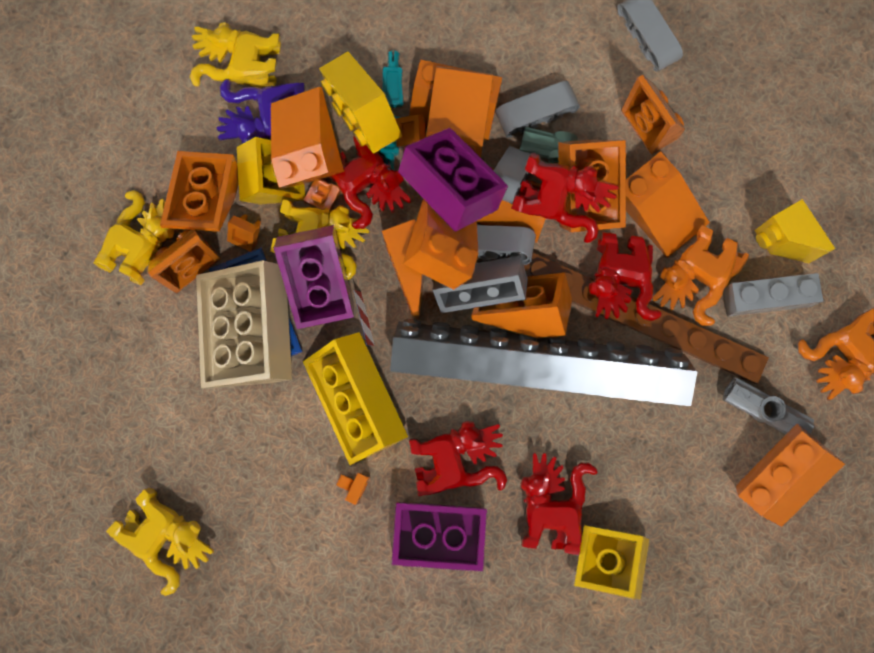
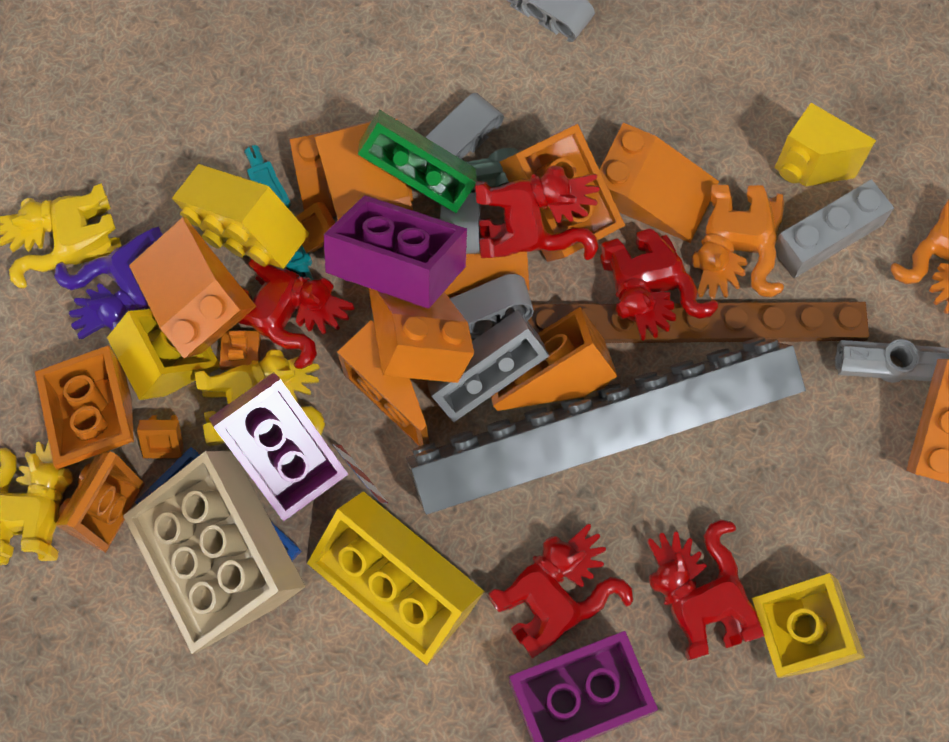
camera: 25 degrees left, 10 degrees down
(355, 487) = (446, 686): orange tile -> none
(498, 118) = (417, 161): none -> green brick
(651, 115) = (592, 89): orange slope -> none

